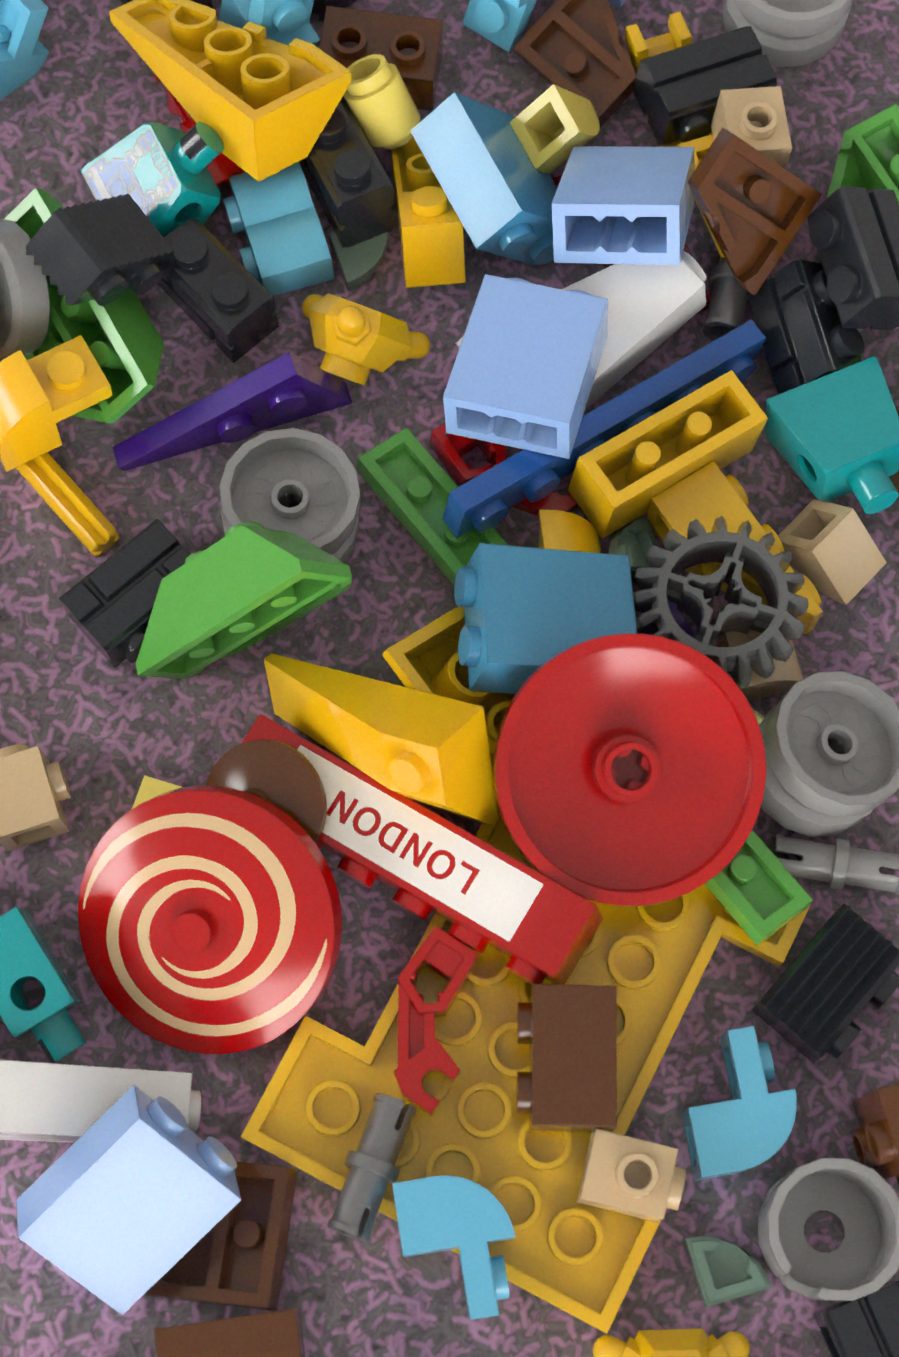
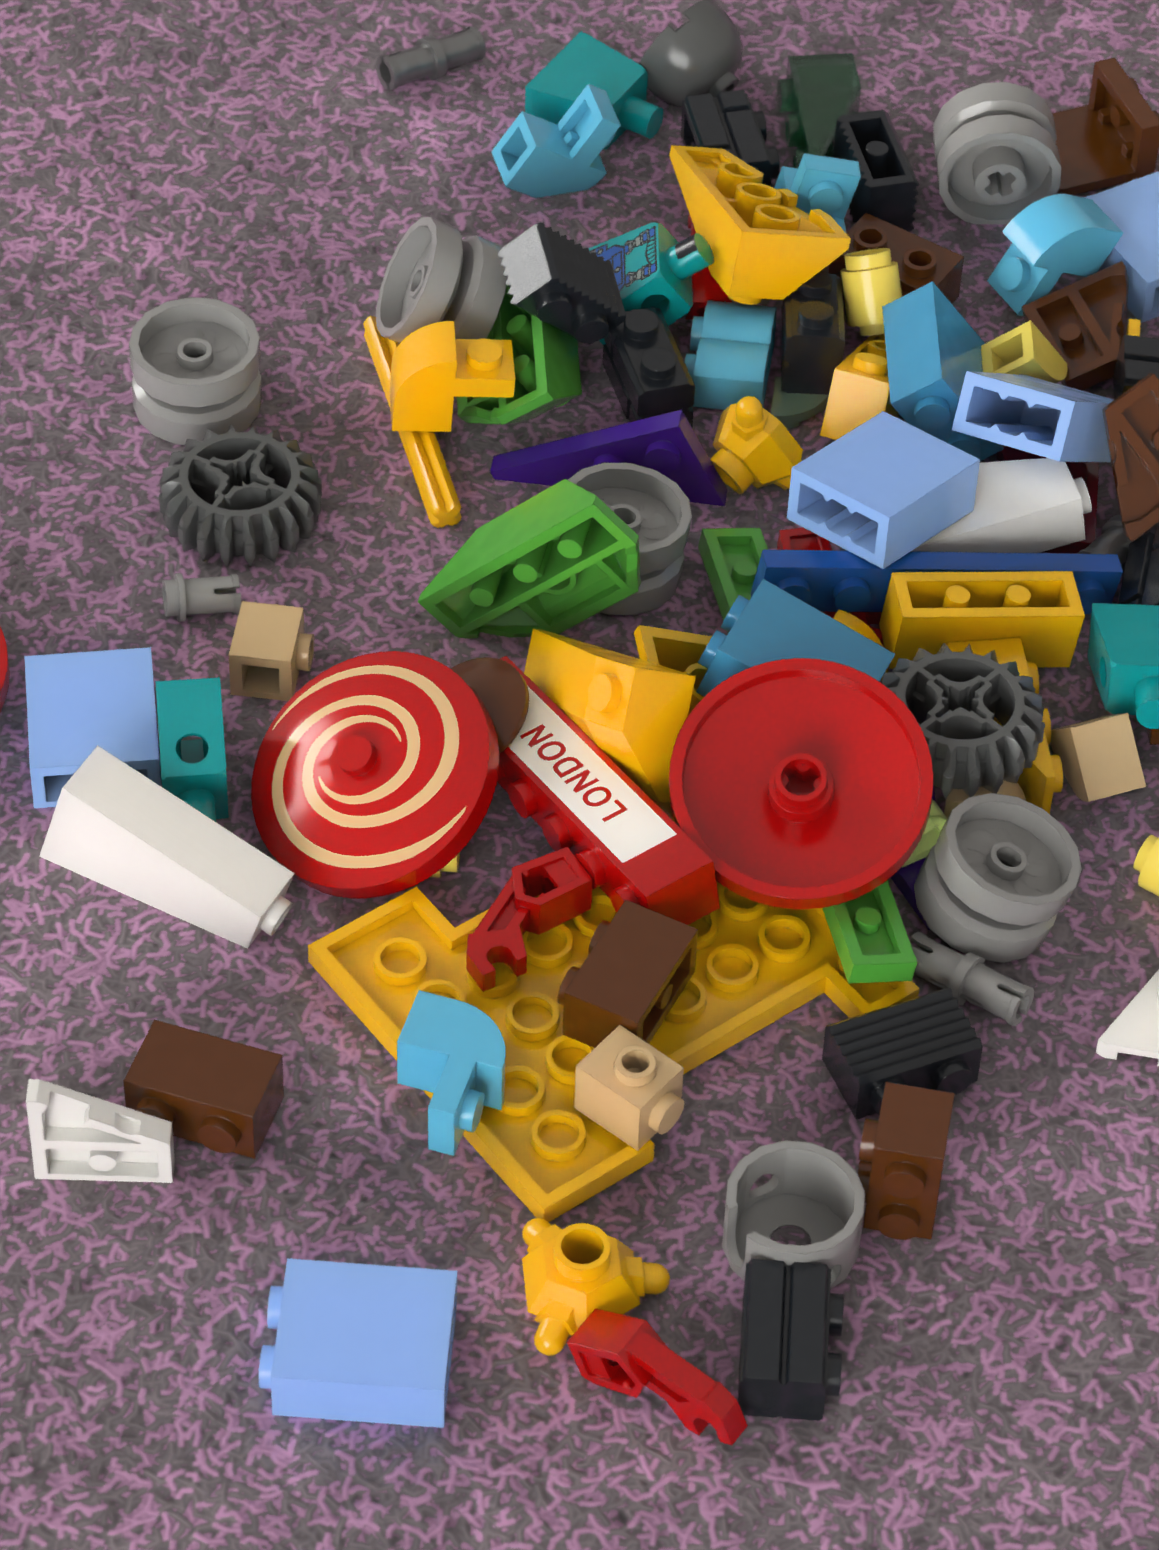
camera: 25 degrees right, 25 degrees down
(119, 595) = (424, 543): black brick -> none
(128, 1199) = (190, 923): brick -> none
(245, 1251) = (269, 1009): reddish brown wing -> none
(372, 1167) = (392, 1004): flat silver pin -> none
(723, 1270) = (679, 1227): sand green tile -> none
(751, 1126) = (751, 1112): medium azure brick -> none

